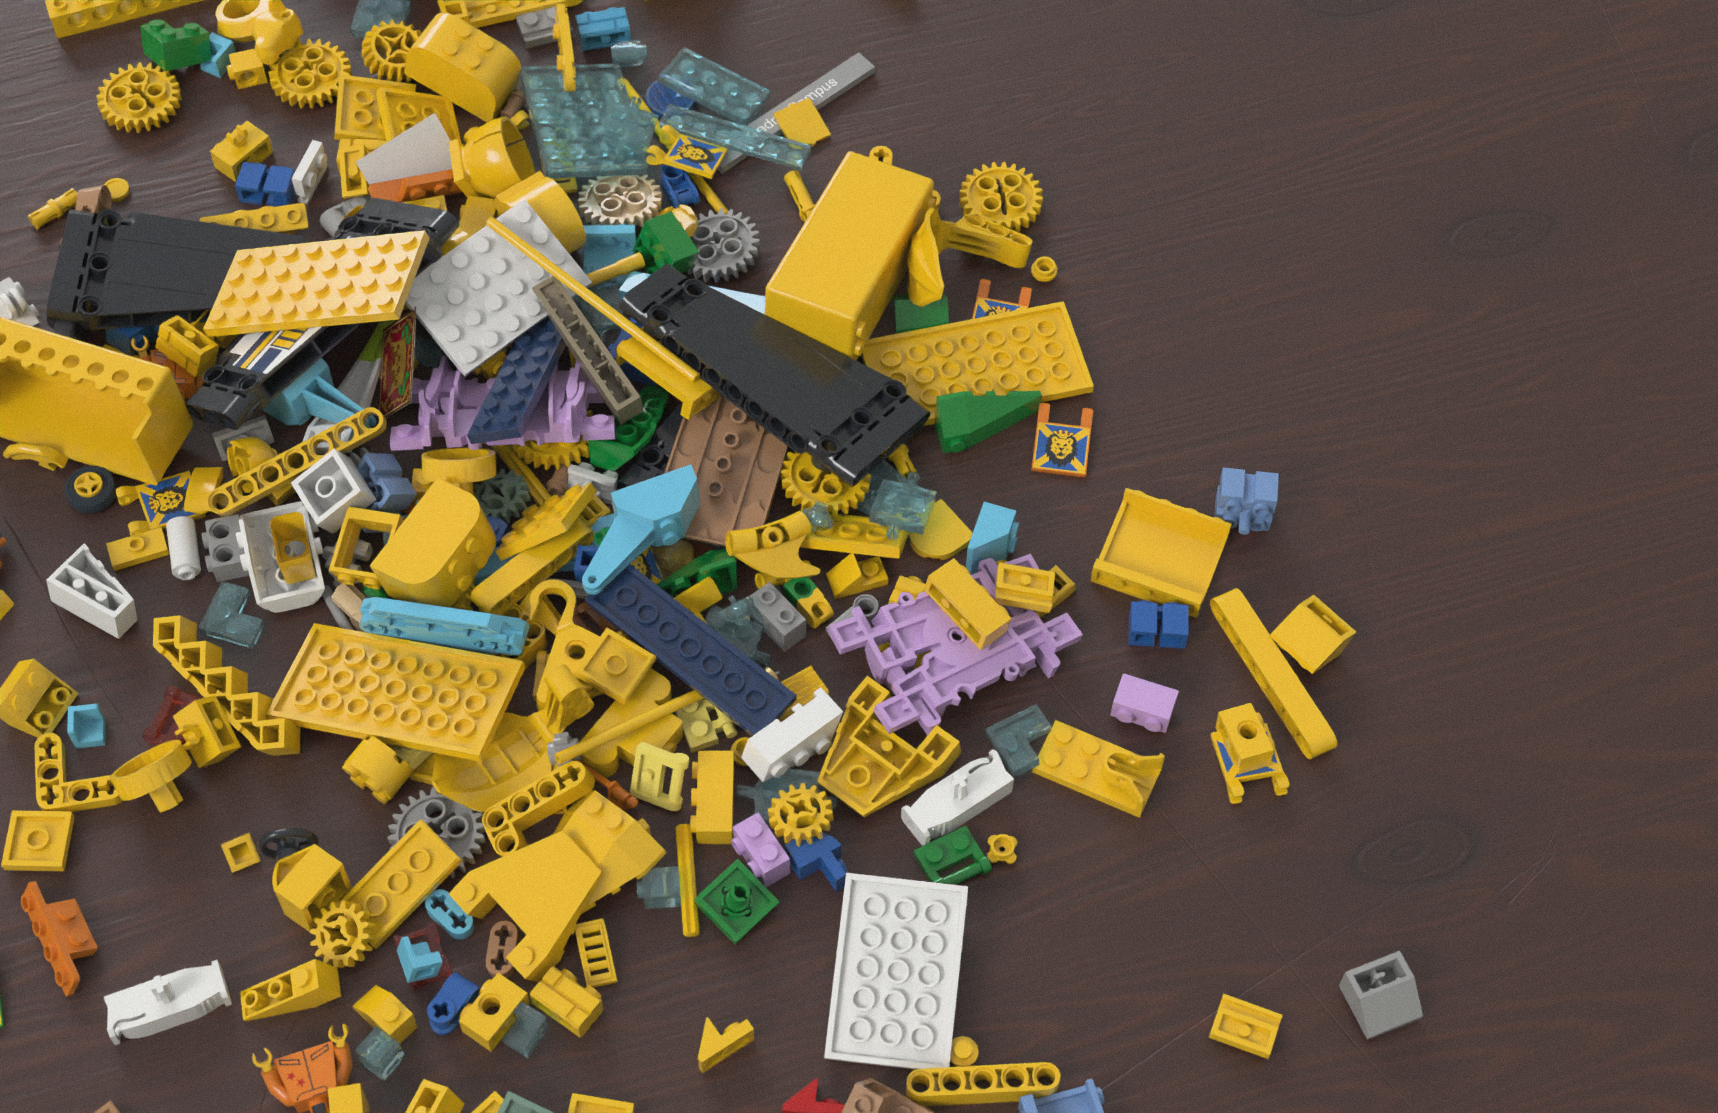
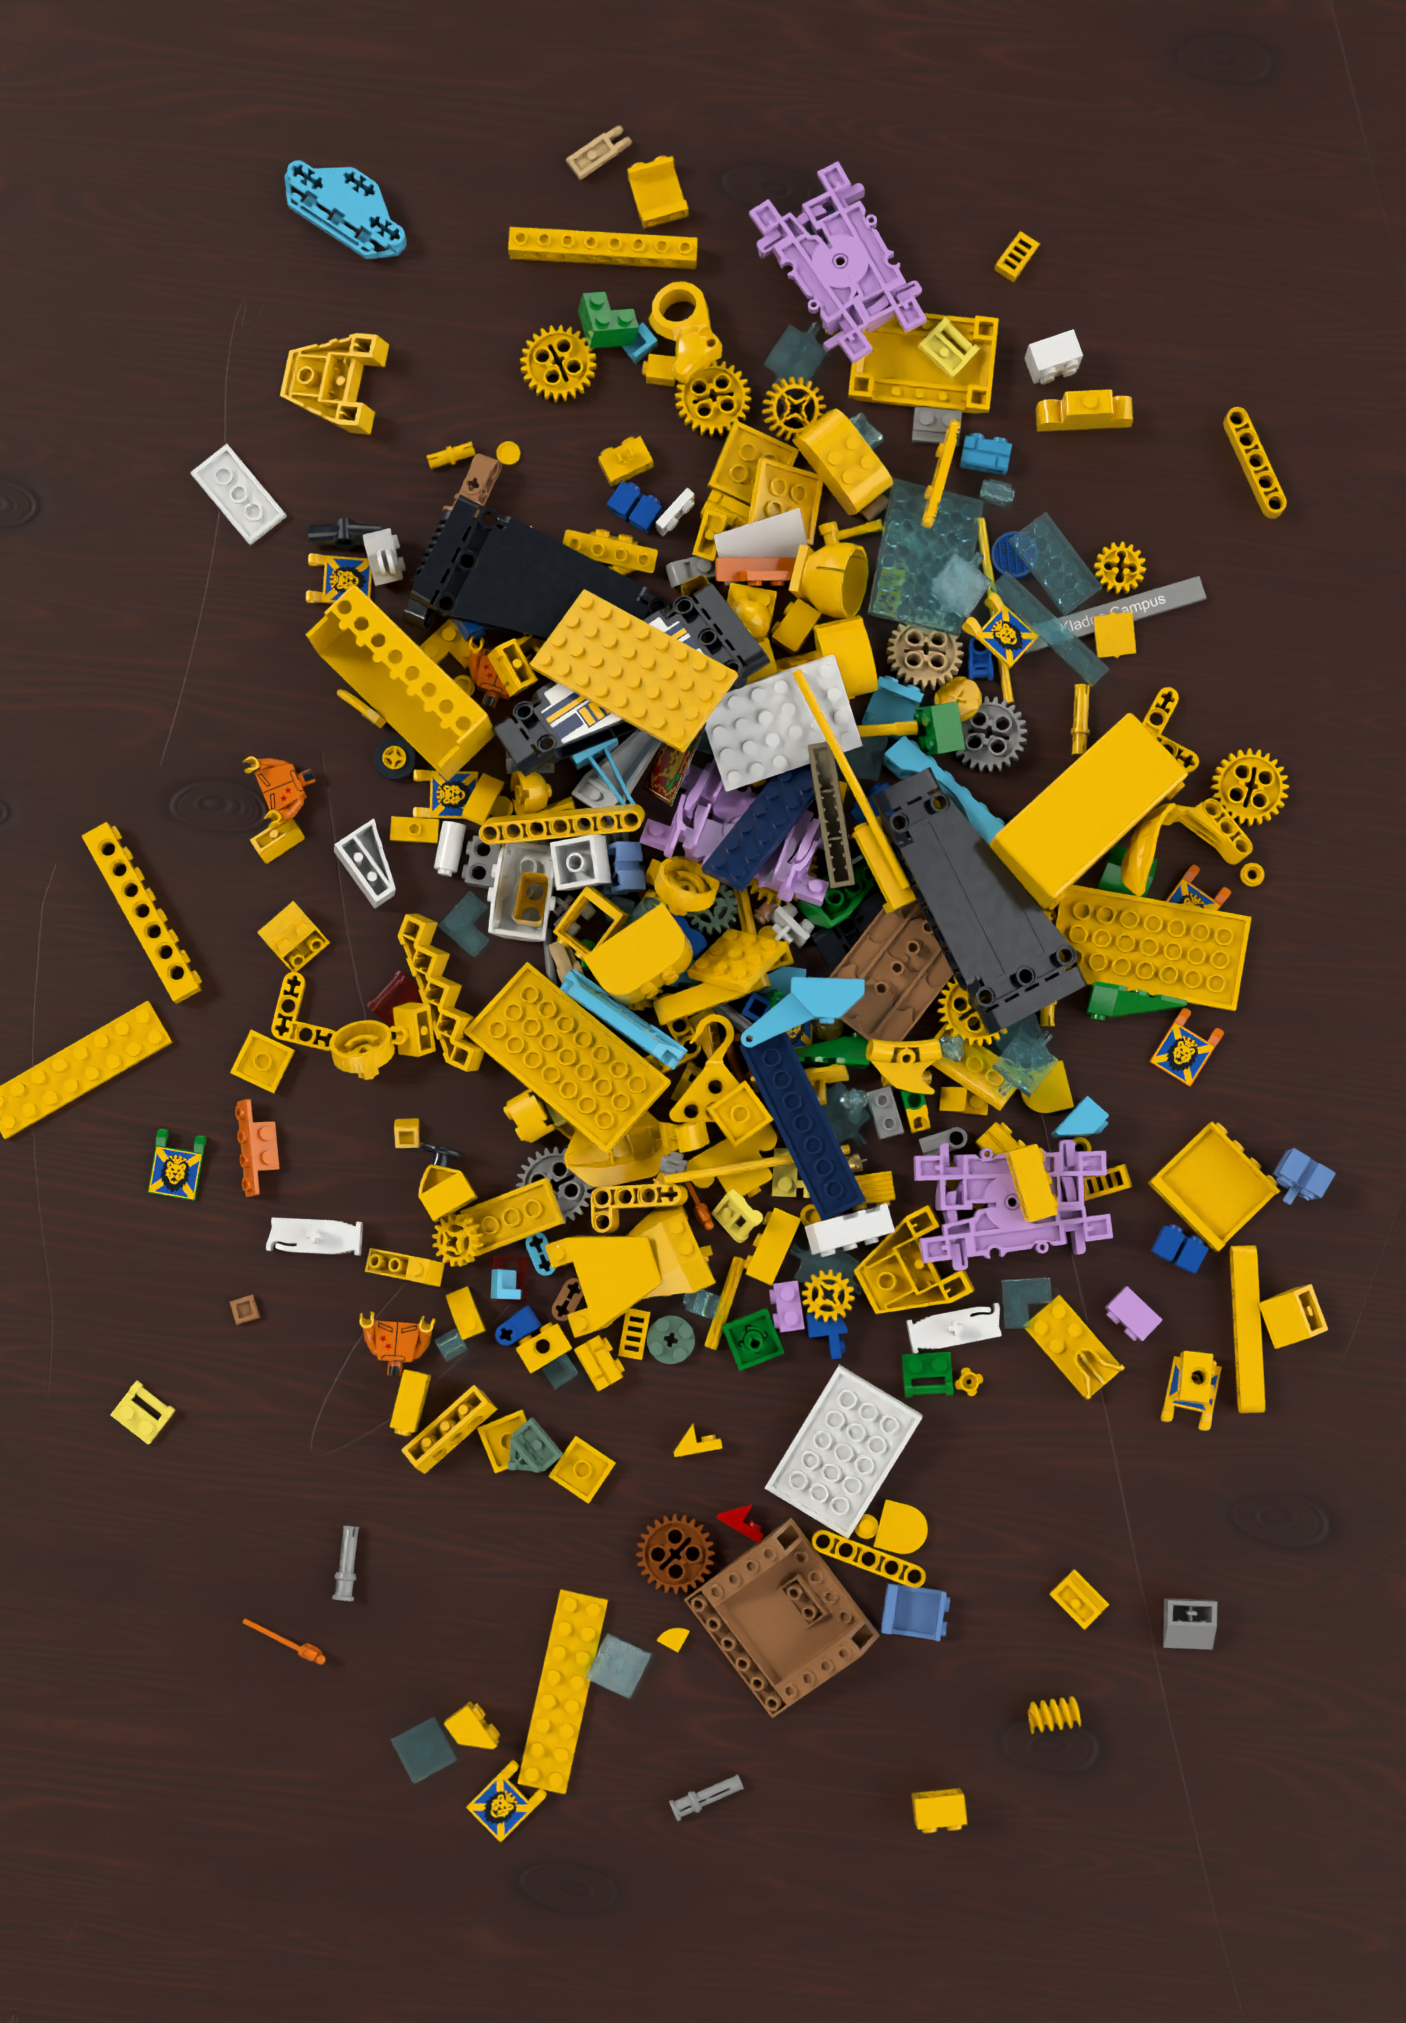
camera: 25 degrees right, 25 degrees up
(86, 726) = (327, 979): medium azure panel -> none
(655, 954) = (663, 1328): none -> sand green plate
(790, 67) = (1129, 578): none -> yellow gear
(1004, 1035) = (900, 1528): none -> yellow tile
(1024, 587) = (1084, 1183): yellow plate -> none

